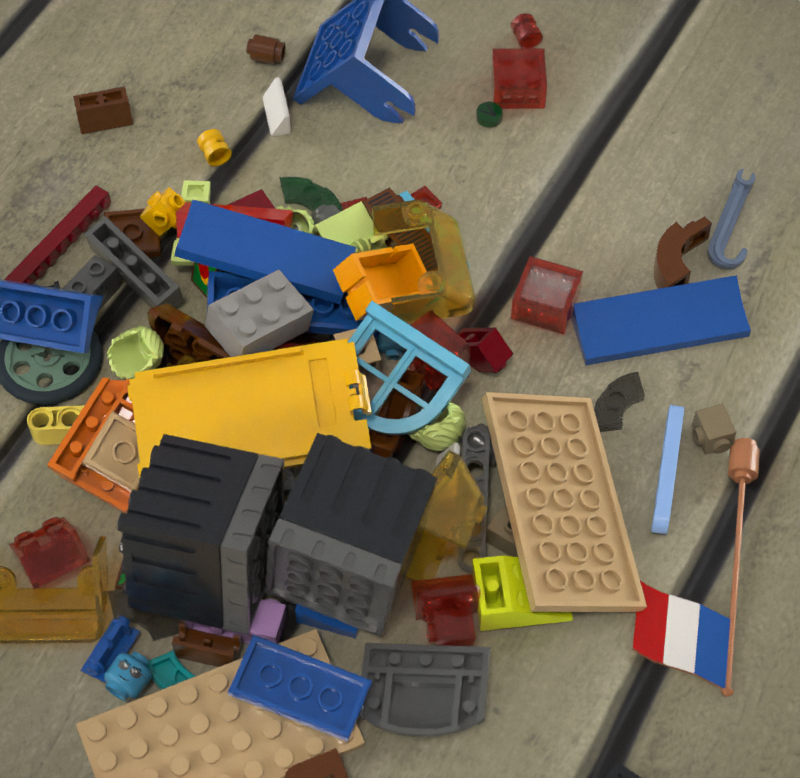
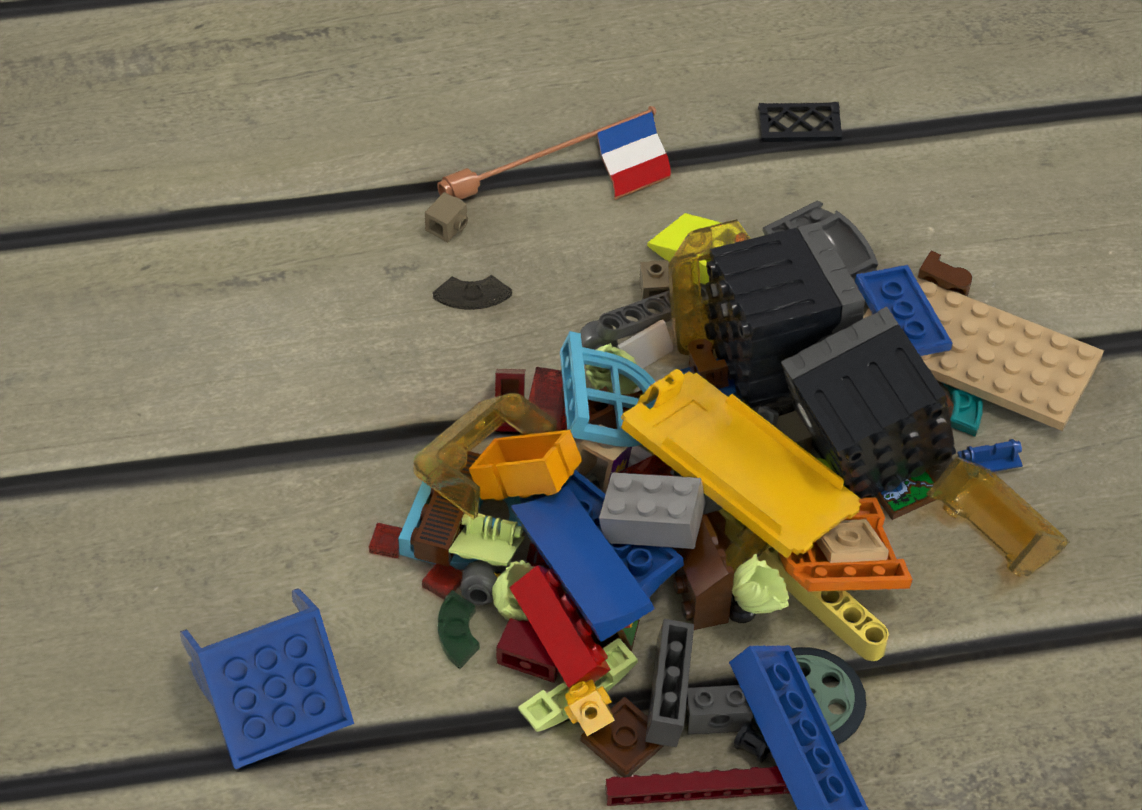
camera: 130 degrees left, 5 degrees down
(49, 551) = (964, 551): clear red slope -> none
(127, 676) = (998, 424): dark azure head -> none
(214, 148) = (474, 737): yellow wheel -> none
(266, 49) = (314, 783): reddish brown brick -> none
(277, 109) = (379, 723): white slope -> none
(489, 114) = (237, 555): dark green tile -> none
(519, 78) = (179, 549): clear red piece -> none
(526, 30) = (107, 583): clear red wheel -> none
(546, 294) = (418, 379): clear red piece -> none
(562, 504) = (603, 258): tan plate -> none
(660, 320) = (369, 306): blue arch -> none
(667, 470) = (494, 226): light blue beam -> none
(674, 243) = (292, 331): reddish brown arch -> none
(727, 221) = (171, 325): sand blue piece -> none

